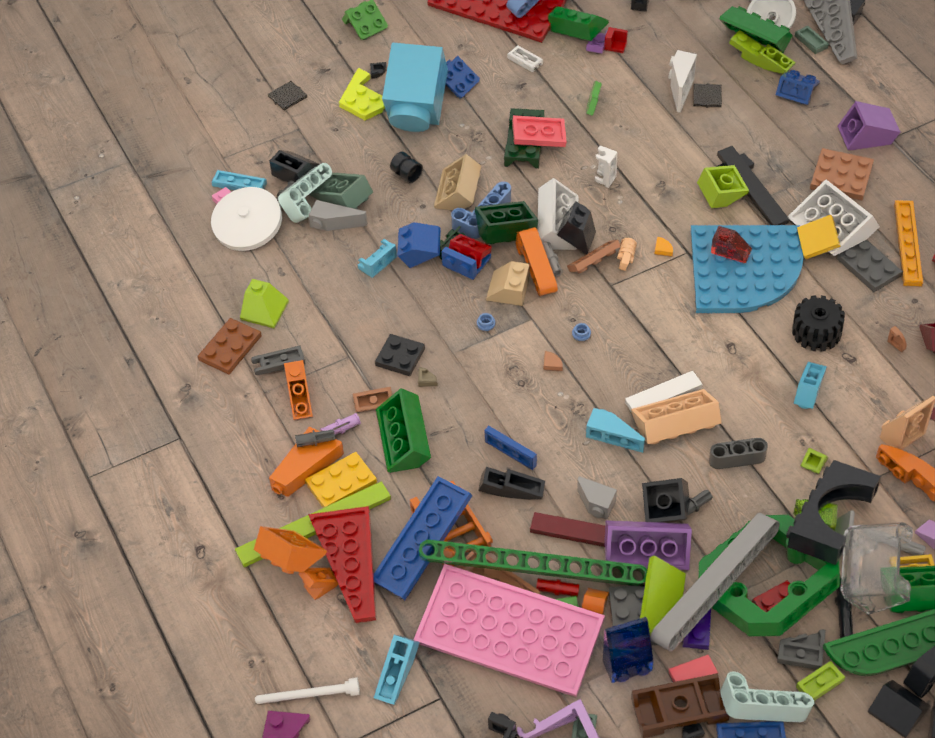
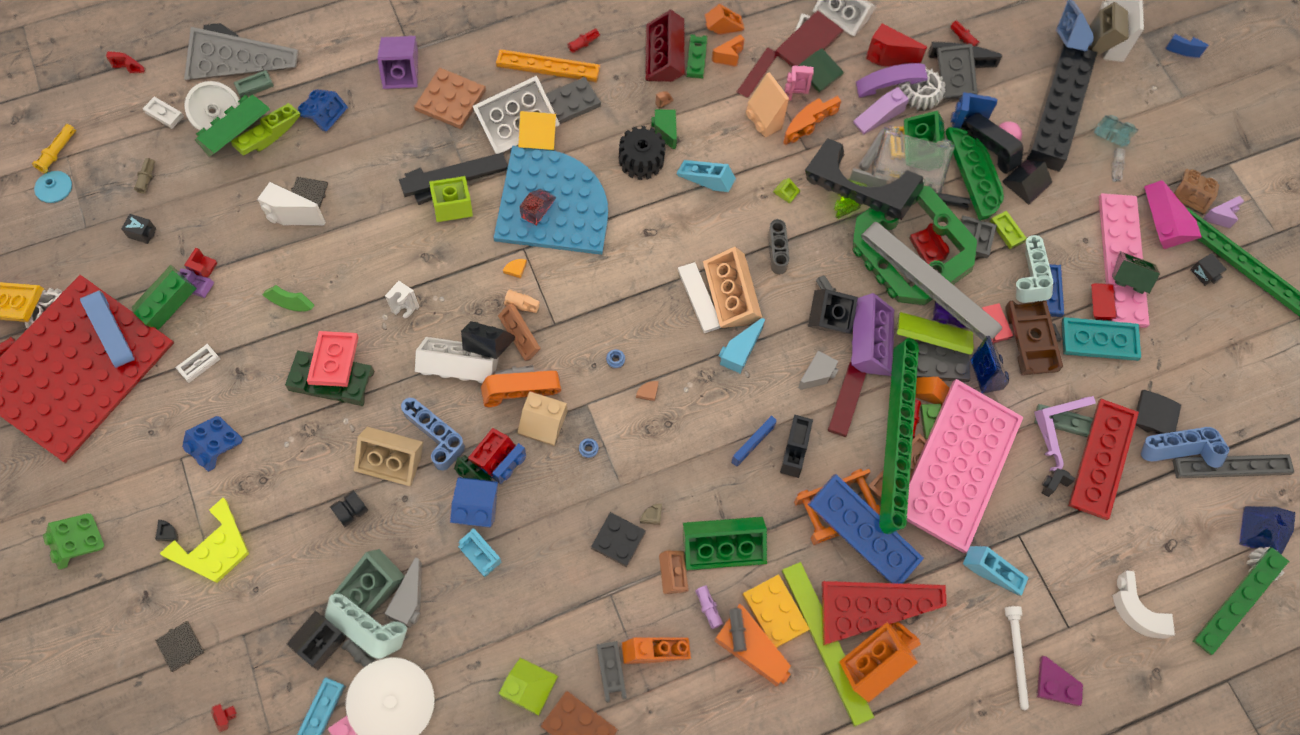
camera: 90 degrees left, 15 degrees up
(232, 125) = (222, 716): none -> red tile
(414, 86) = (239, 480): medium azure container -> none
(502, 221) = (462, 408): dark green slope -> none
(861, 344) = (665, 124): none -> green slope

